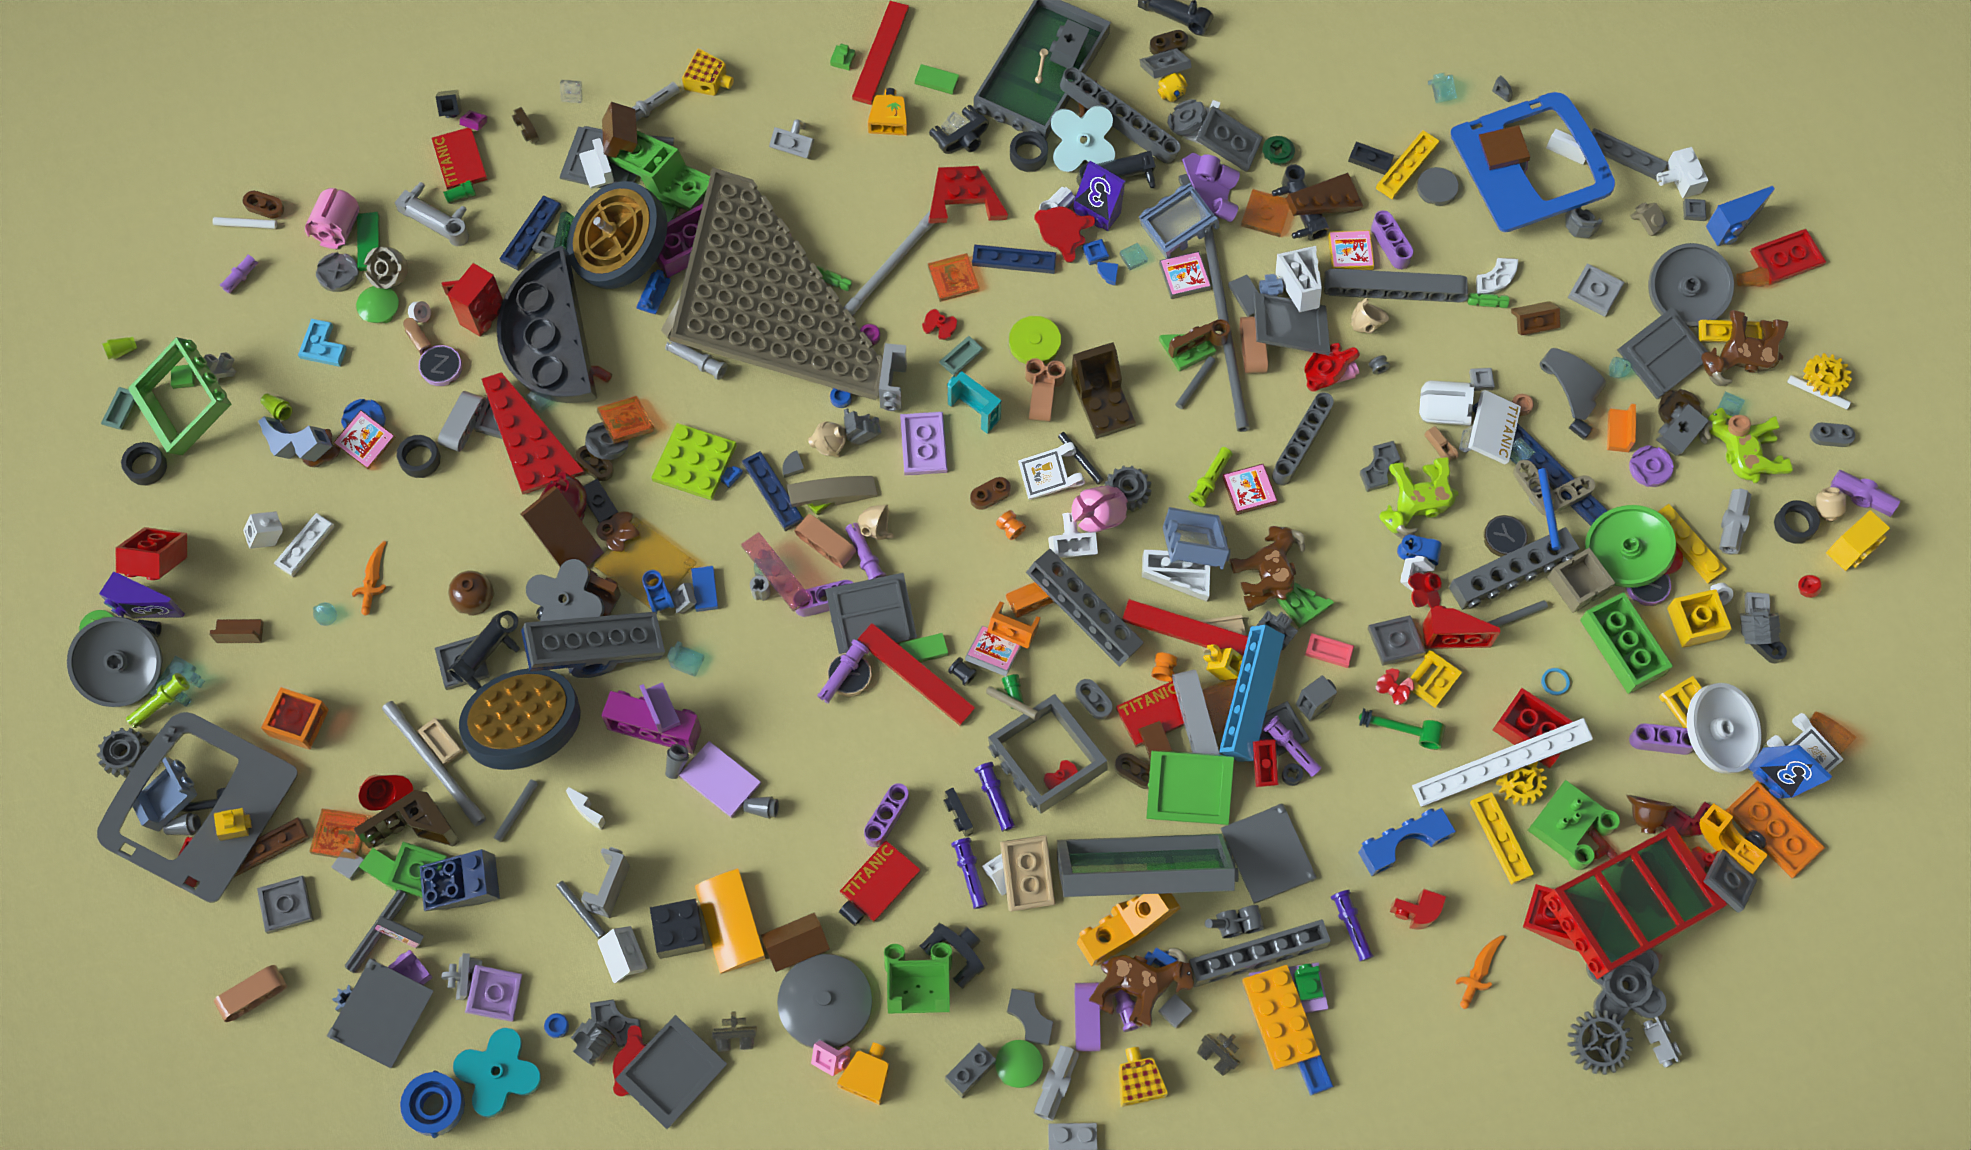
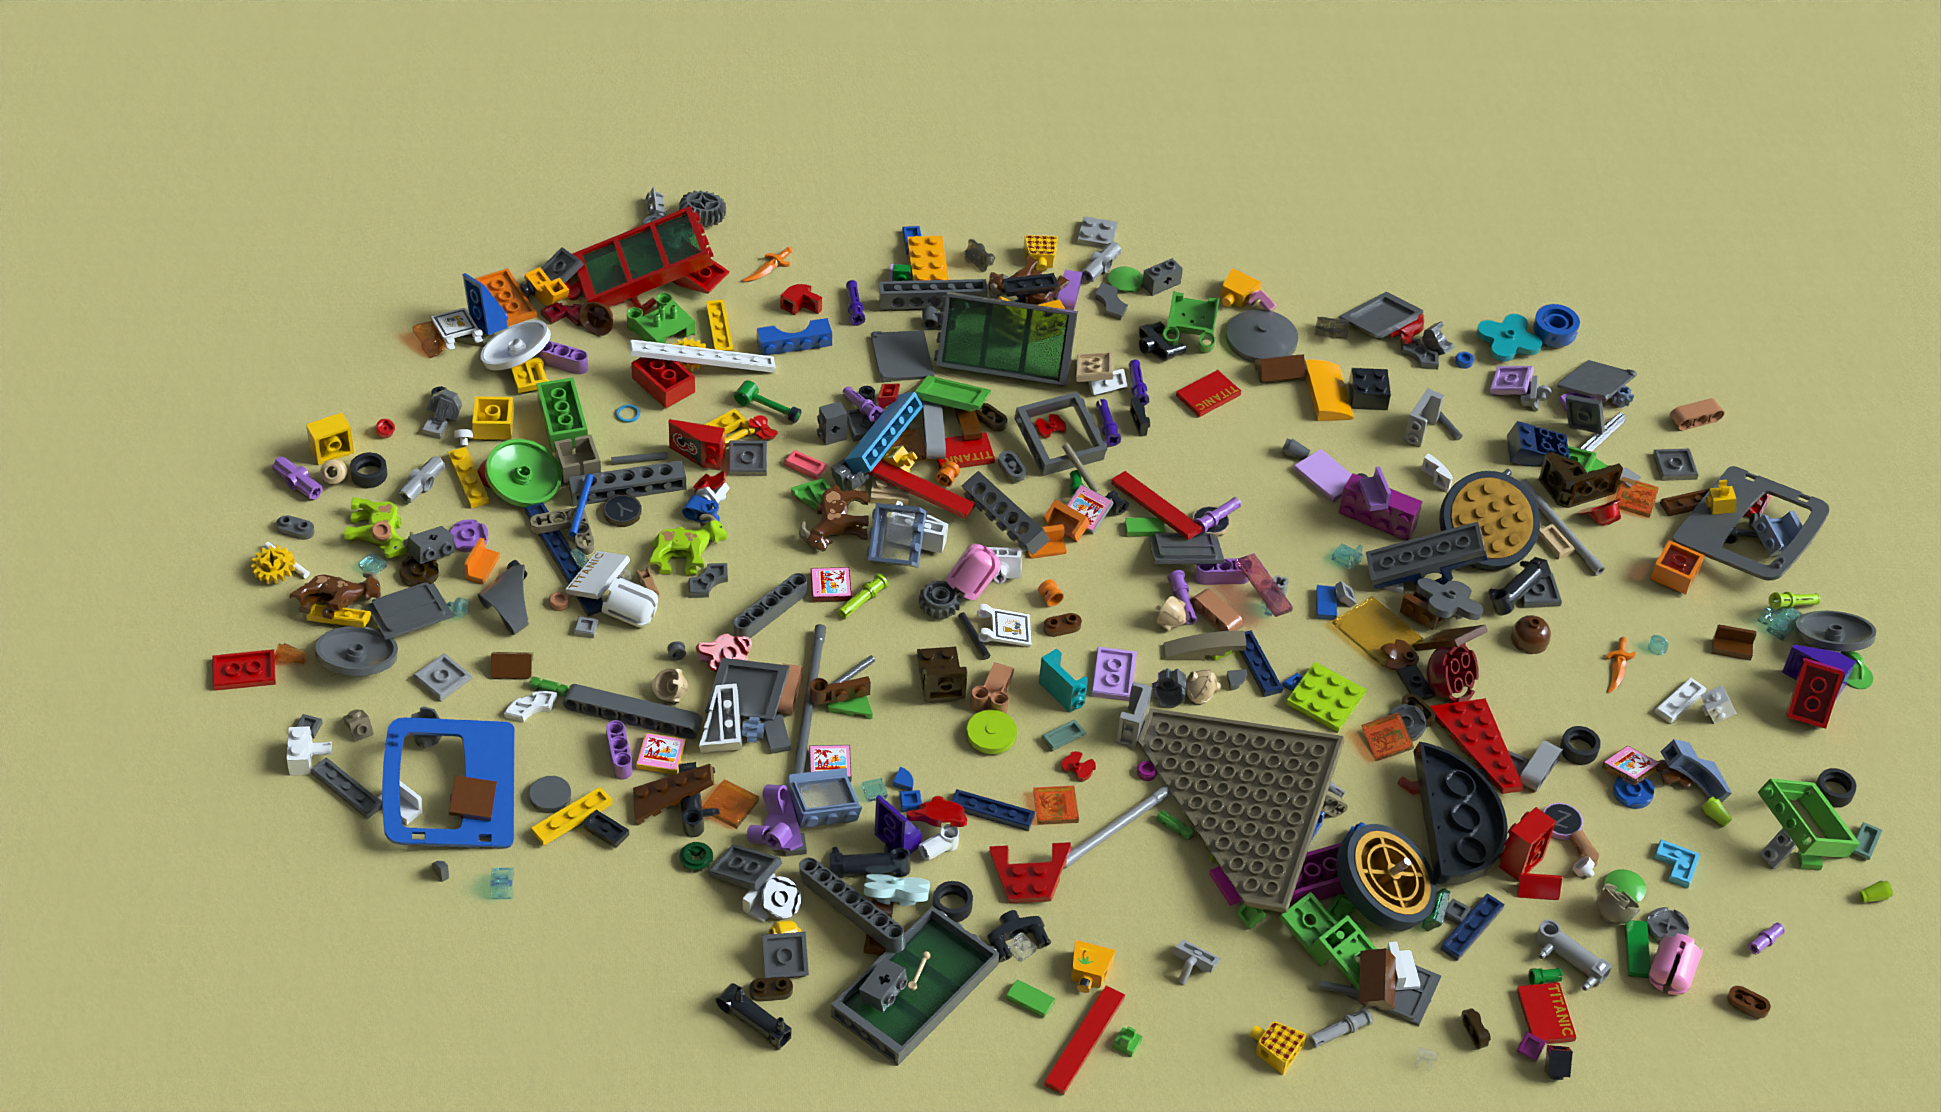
camera: 170 degrees left, 20 degrees down
(114, 745) = (1818, 576): dark grey gear -> none
(238, 222) = (1769, 992): white bar -> none
(622, 953) = (1410, 385): white panel -> none
(658, 595) = (1368, 599): blue piece -> none
(852, 913) = (1234, 376): black hinge -> none
(891, 805) = (1196, 425): medium lavender beam -> none
(1136, 961) = (1030, 284): none -> black plate
(1734, 216) = (273, 696): blue slope -> none

